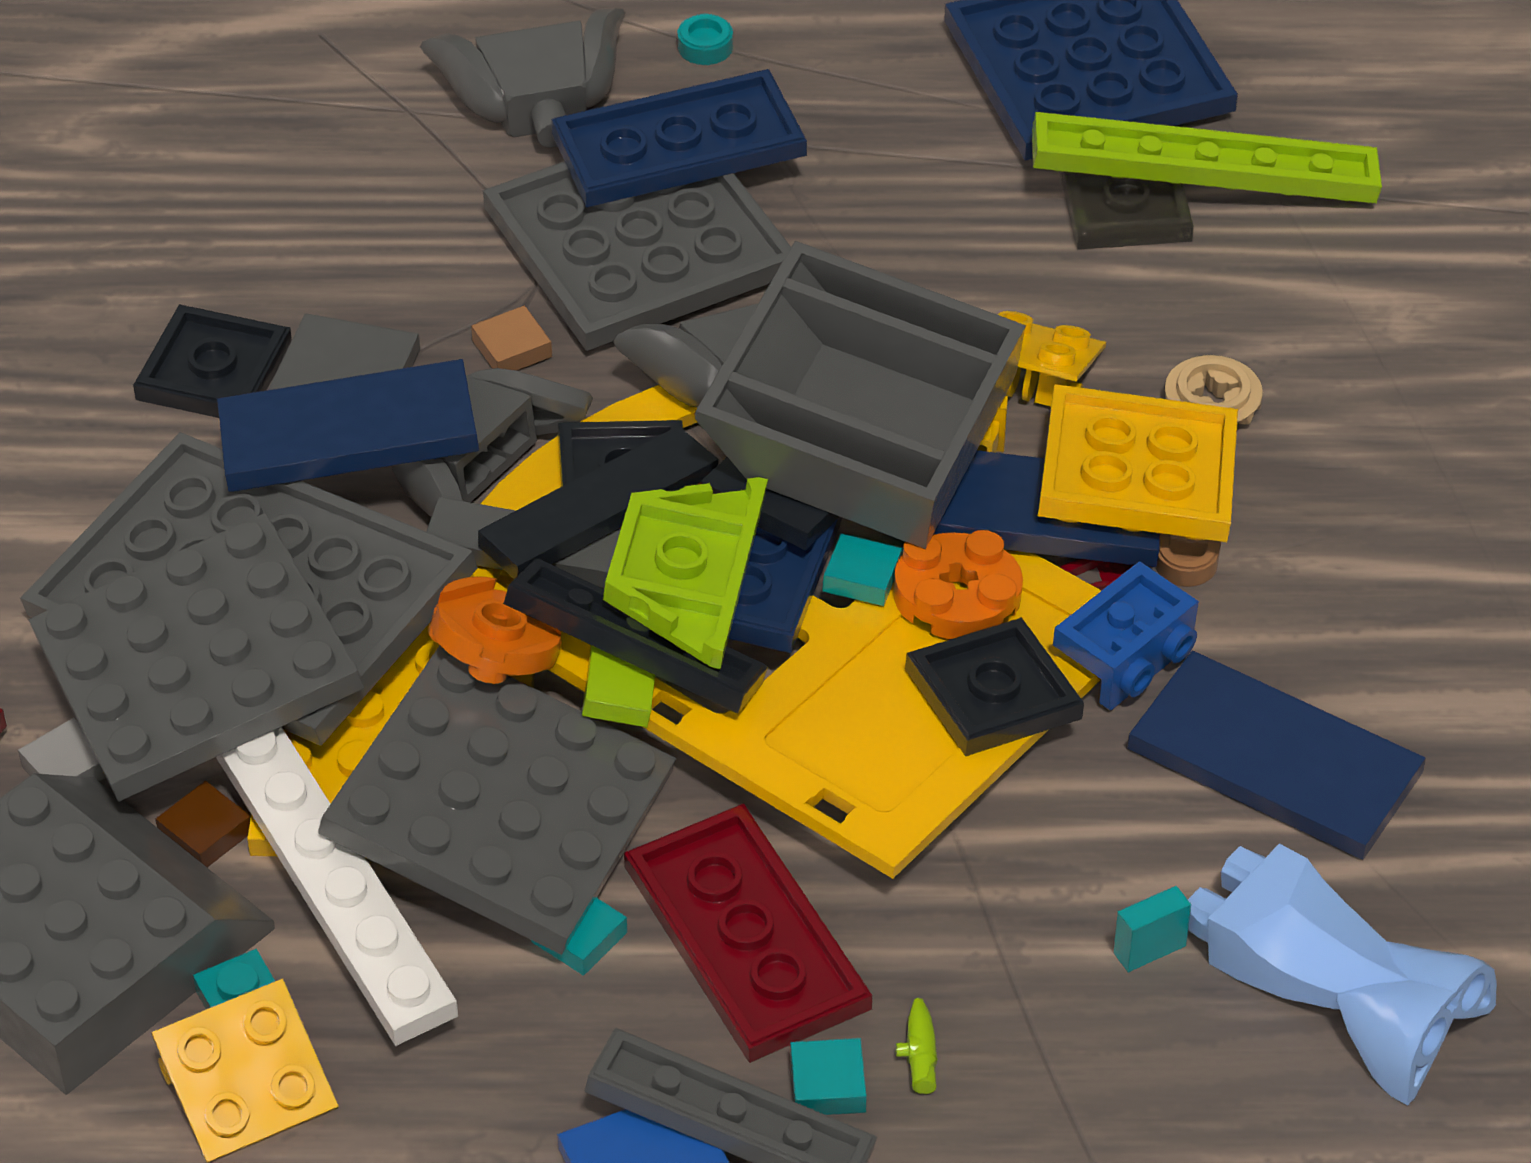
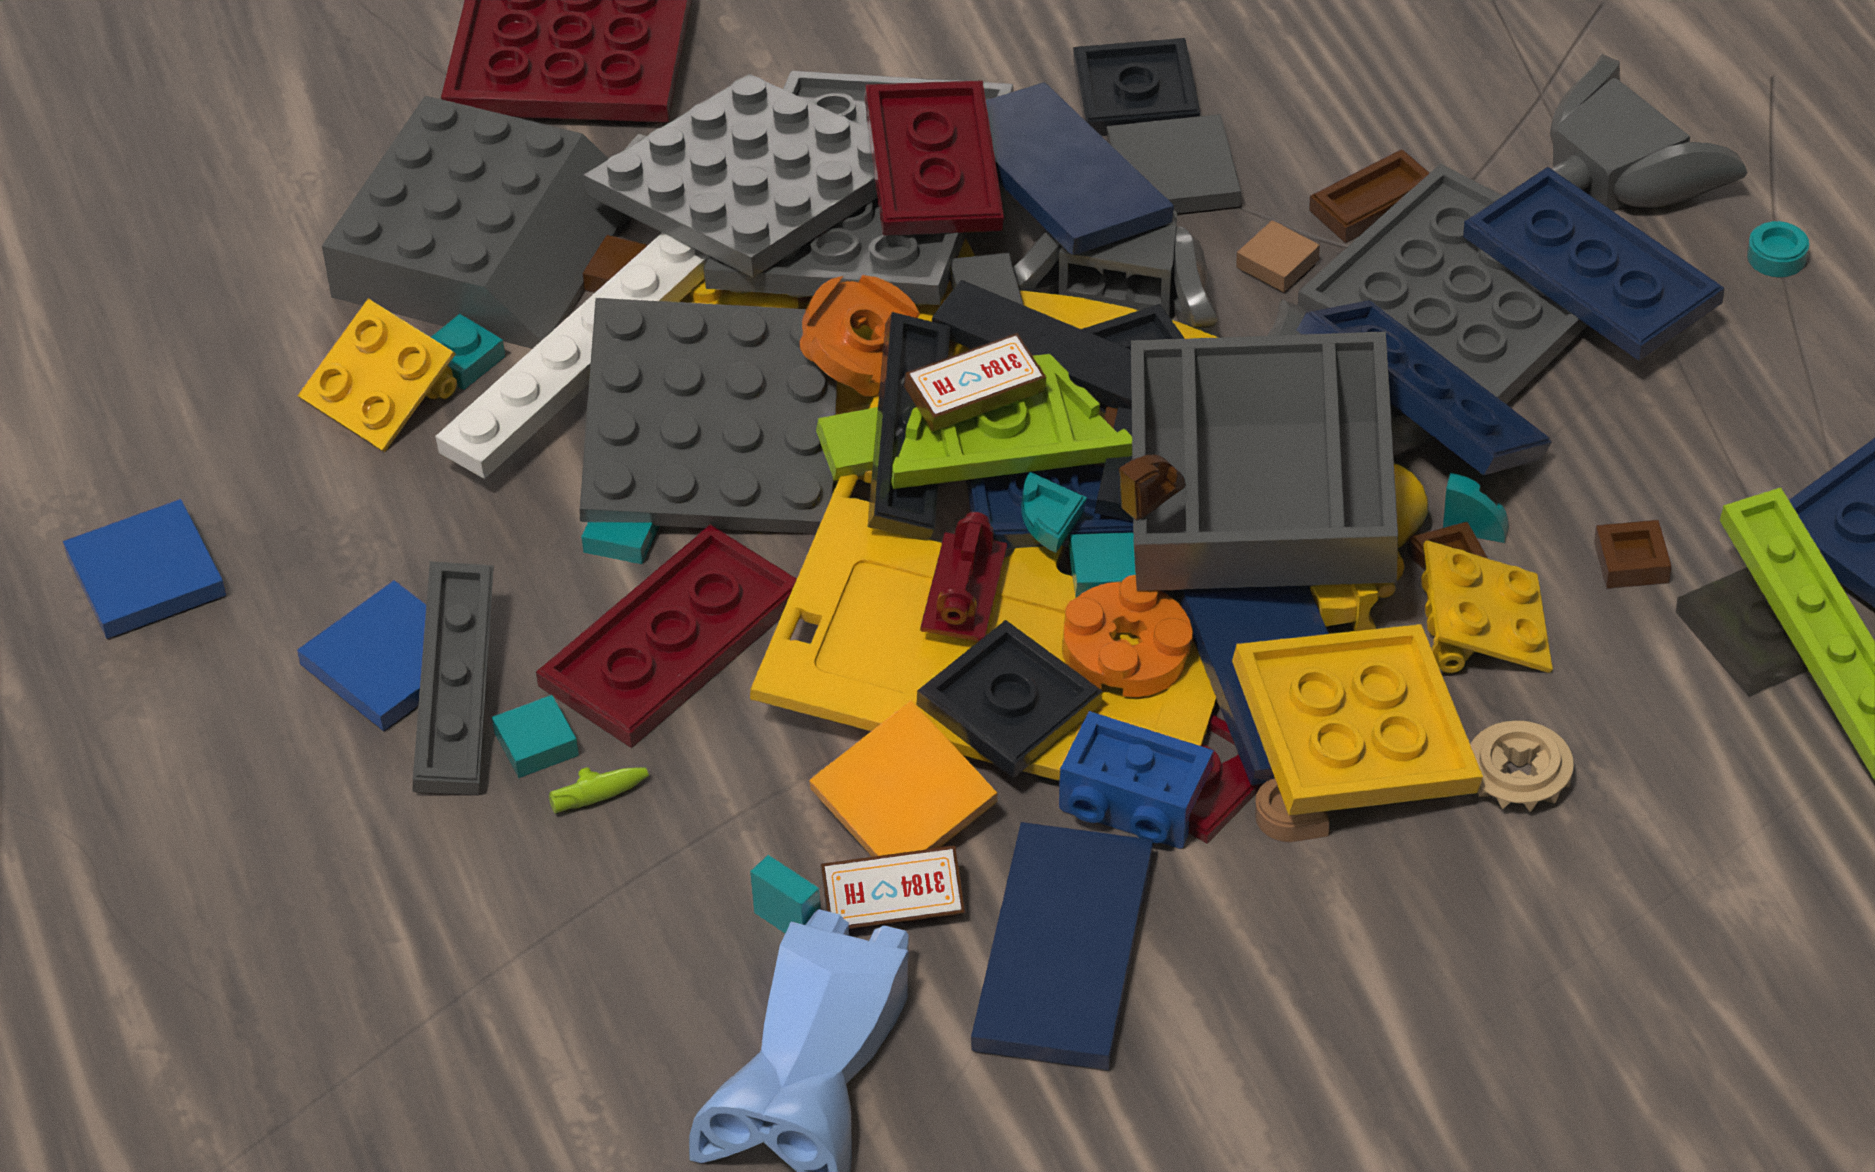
camera: 70 degrees right, 0 degrees up
(301, 495) = (933, 158): none -> dark red tile
(474, 255) = (1365, 196): none -> reddish brown tile
(652, 550) = (975, 382): none -> tile
(739, 288) = (1439, 393): none -> dark blue tile
(796, 575) = (1050, 510): none -> teal tile
(853, 671) = (965, 580): none -> dark red hinge
(894, 456) = (1148, 484): none -> reddish brown tile
(1007, 247) = (1632, 554): none -> reddish brown tile
(1062, 800) = (903, 786): none -> light orange tile
(1168, 841) = (894, 887): none -> white tile

